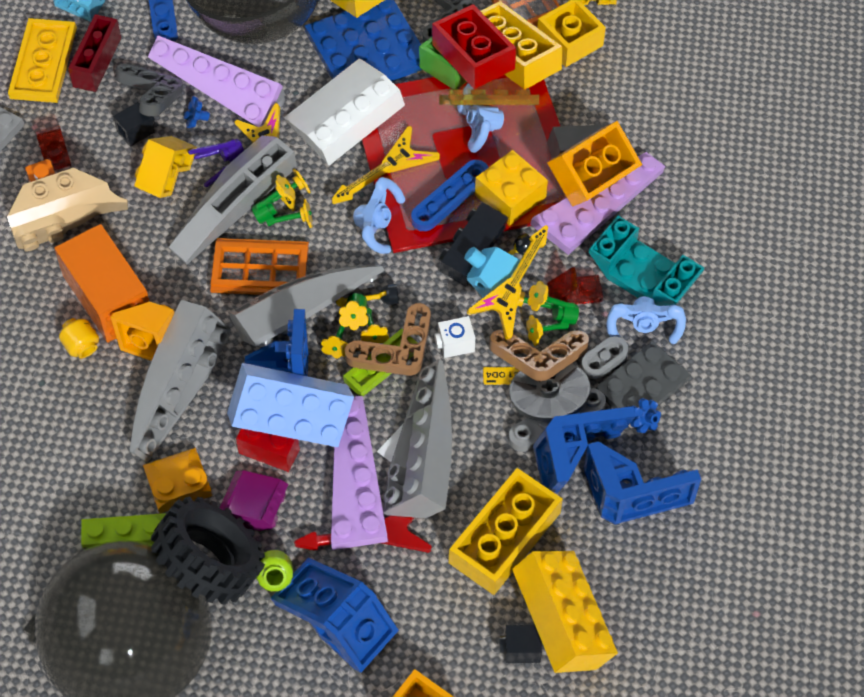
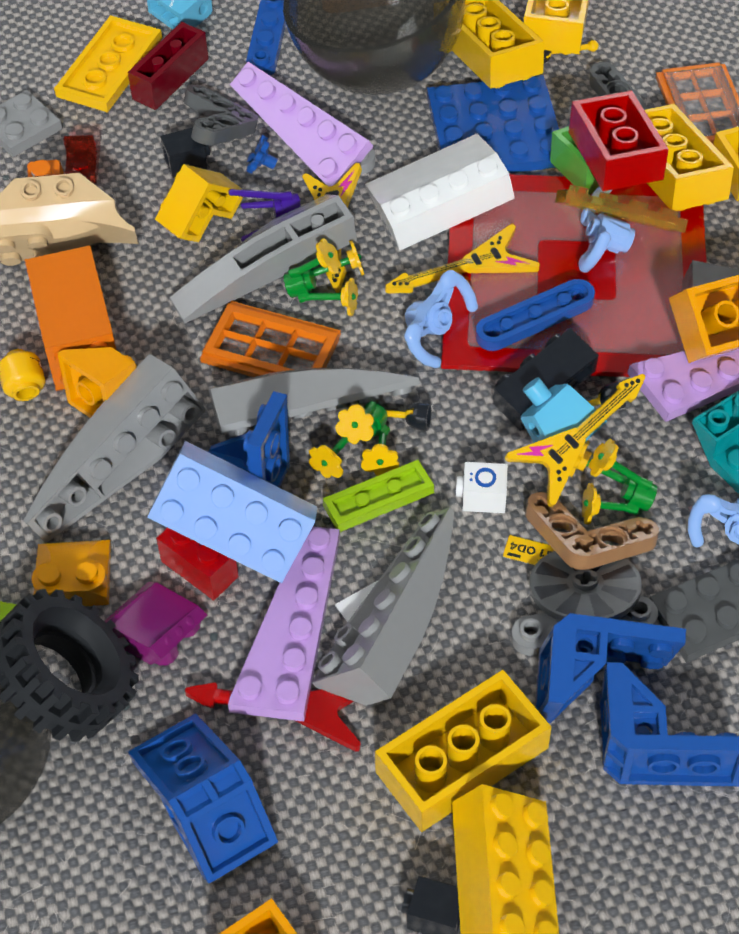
camera: 20 degrees right, 5 degrees down
(276, 572) = (144, 717): lime head -> none
(398, 354) = (400, 488): medium nougat beam -> none
(511, 186) = (616, 321): yellow brick -> none
(576, 289) = (664, 468): clear red slope -> none
(603, 359) = (671, 562): light grey plate -> none
(646, 416) = (704, 650): blue plant -> none

